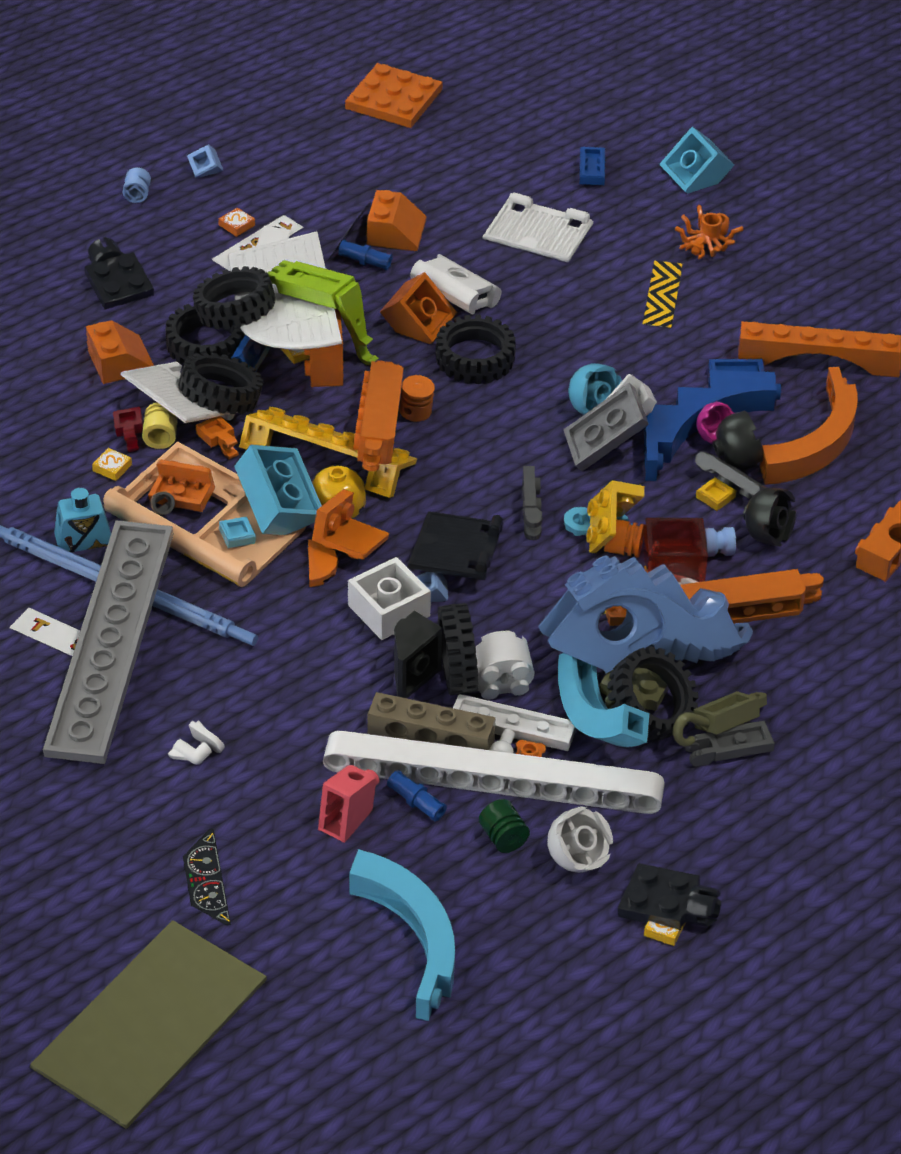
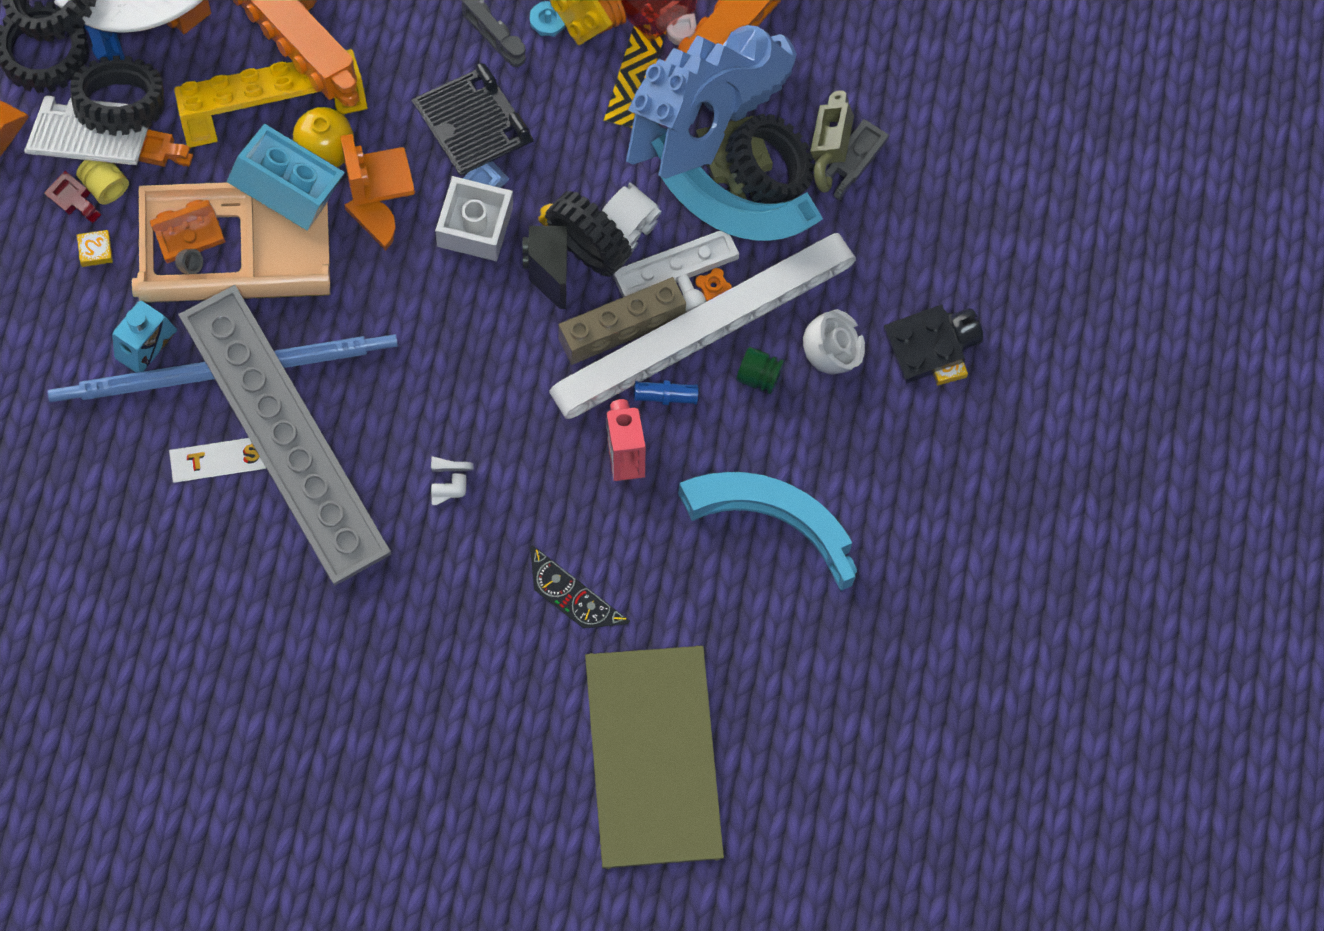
camera: 45 degrees left, 25 degrees up
(237, 532) = (280, 243): medium azure tile -> none

